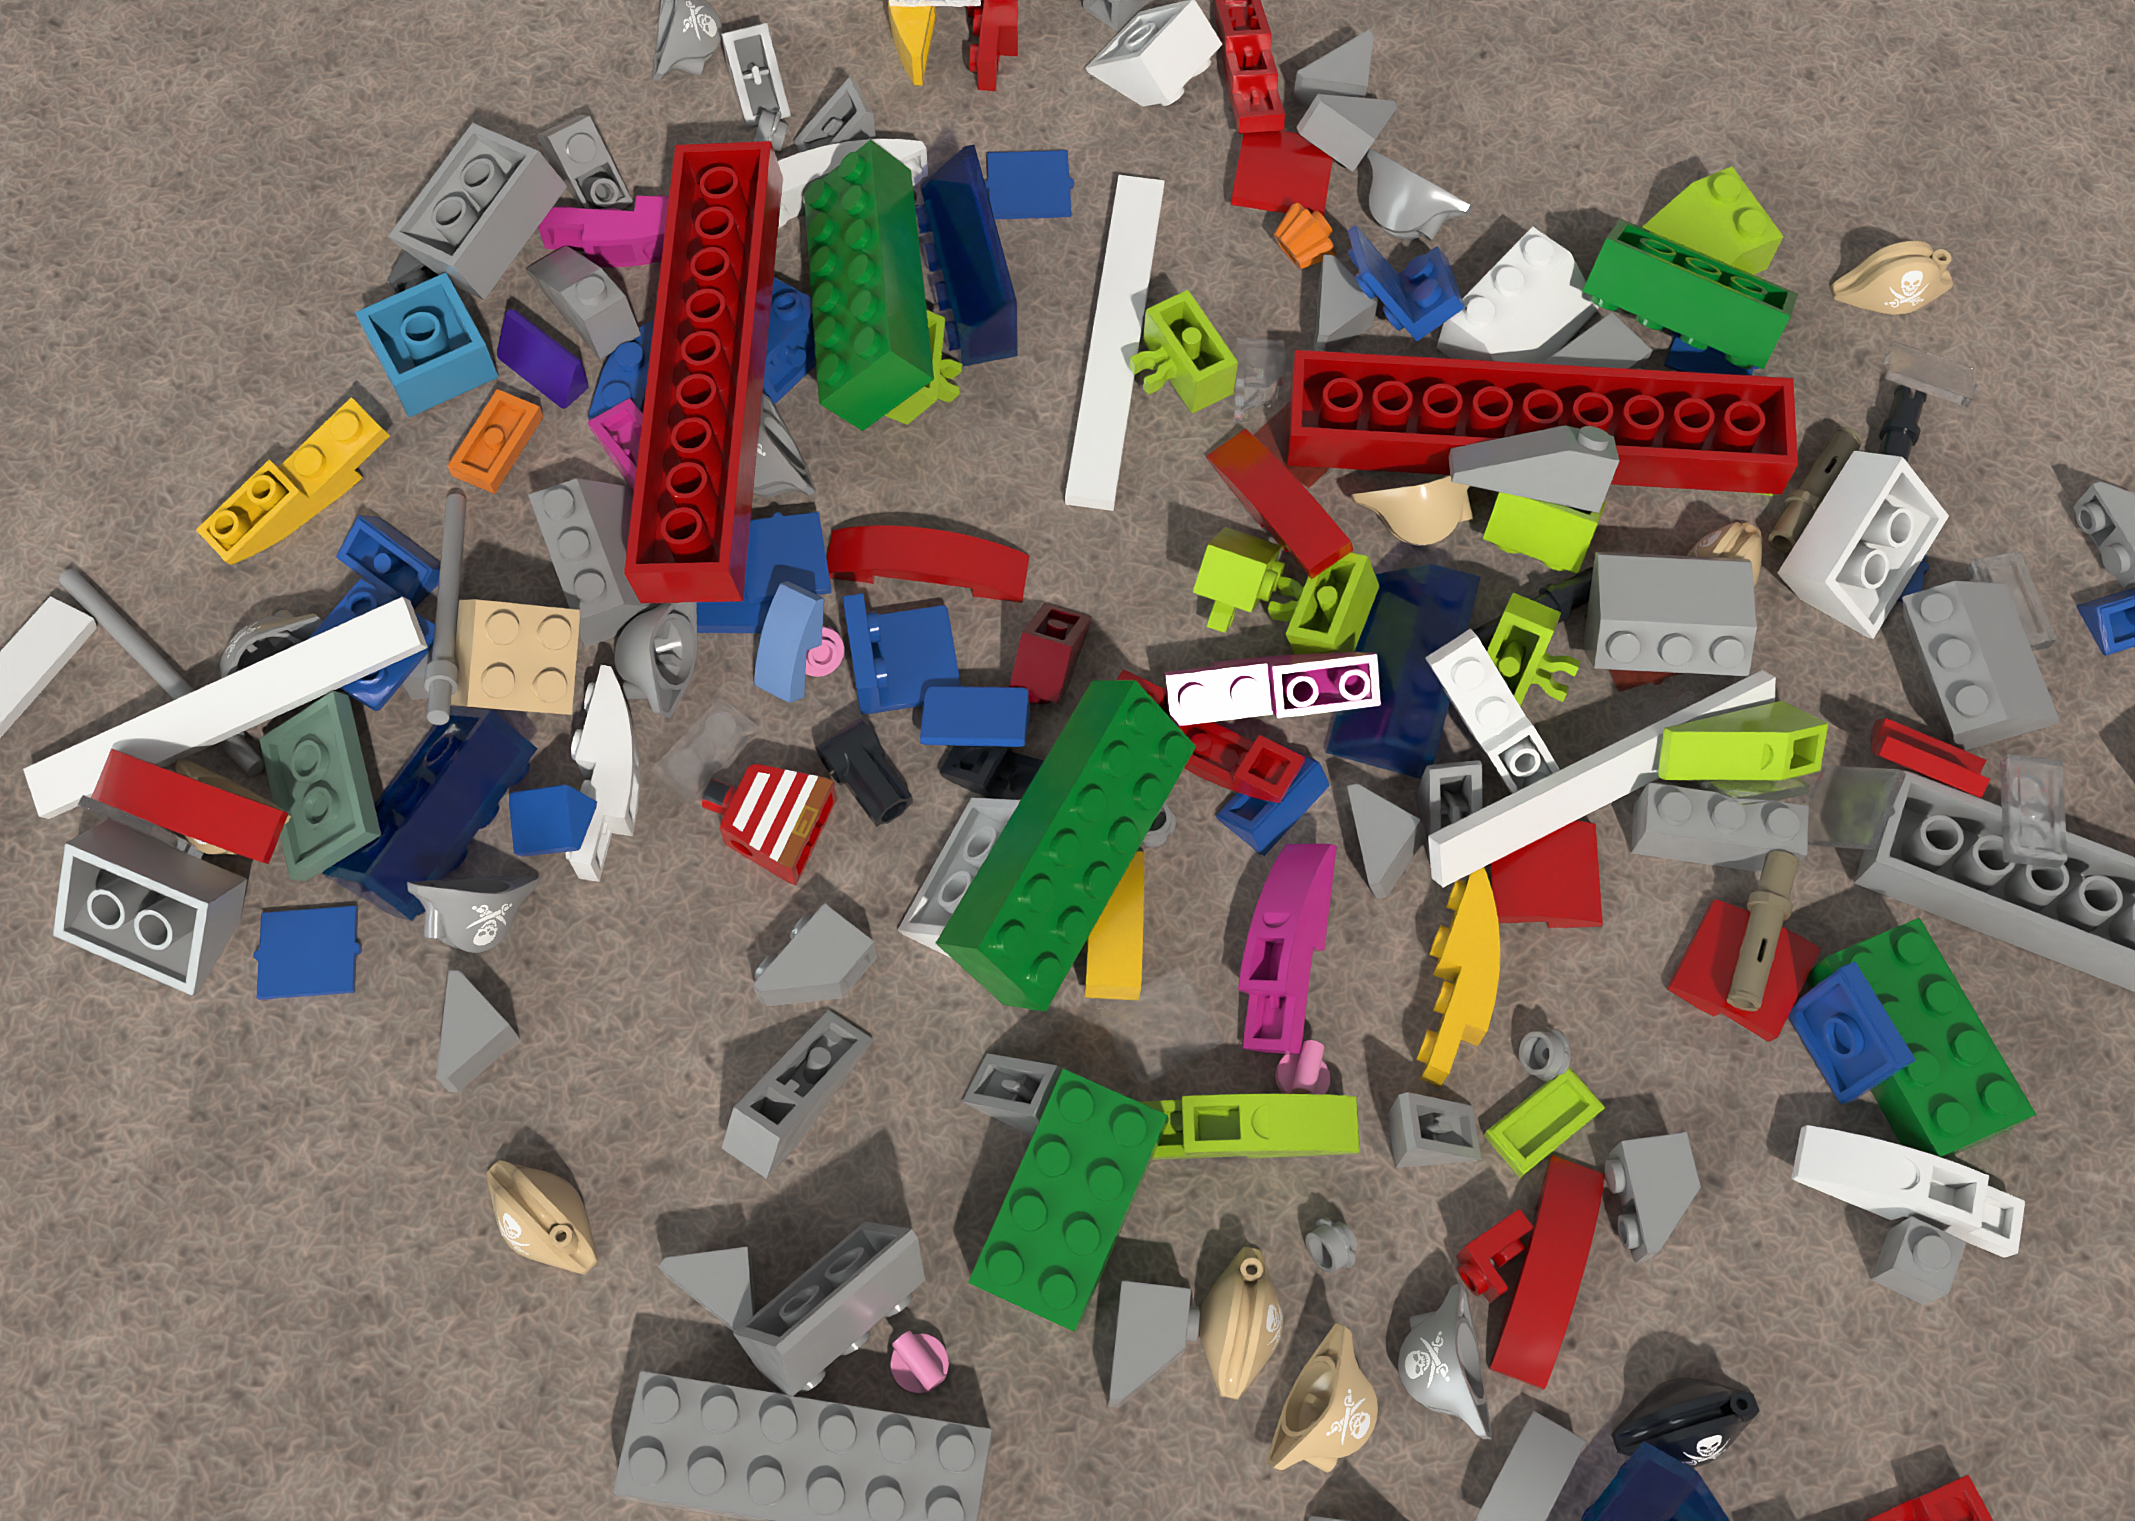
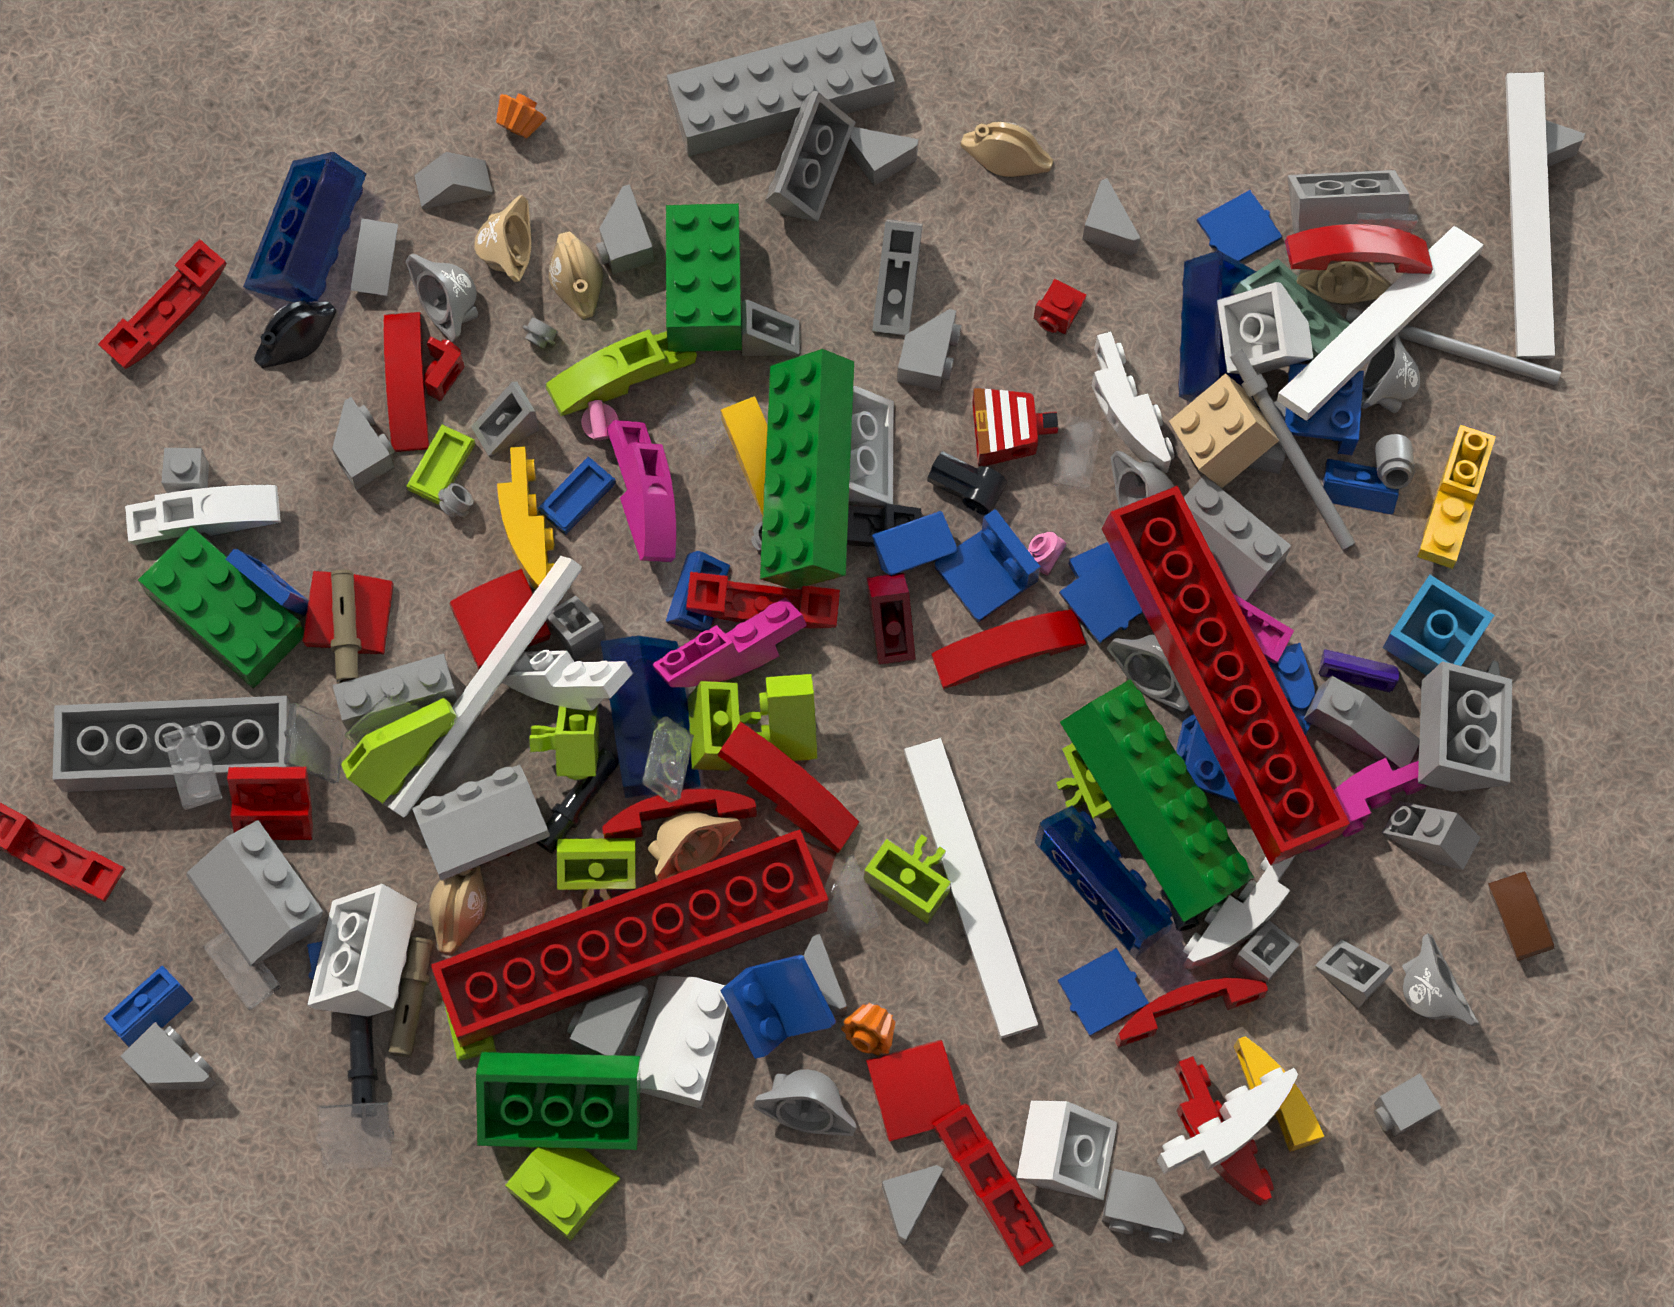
camera: 155 degrees right, 5 degrees up
(333, 554) = (1395, 461): none -> light grey brick
(384, 739) = (1266, 328): none -> white slope
(472, 911) = (1155, 286): light grey hat -> none
(495, 441) = (1349, 594): orange plate -> none
(547, 59) = (1521, 916): none -> reddish brown slope
(549, 820) = (1139, 353): blue slope -> none
(611, 949) = (1059, 307): none -> red bracket
(771, 129) = (1317, 935): light grey plate -> none
(789, 631) = (1061, 533): medium blue slope -> none
(919, 1363) = (746, 169): bright pink plate -> none
(950, 130) = (1233, 991): none -> red slope
(1345, 125) = (875, 1137): light grey slope -> none
(1375, 994) = (577, 495): none -> blue tile
(1386, 838) = (615, 589): light grey slope -> none
(1397, 549) = (728, 804): none -> red slope
(1412, 581) = (668, 759): none -> clear plate
(1545, 465) = (617, 874): light grey slope -> none
(1896, 279) = (406, 1221): tan hat -> none

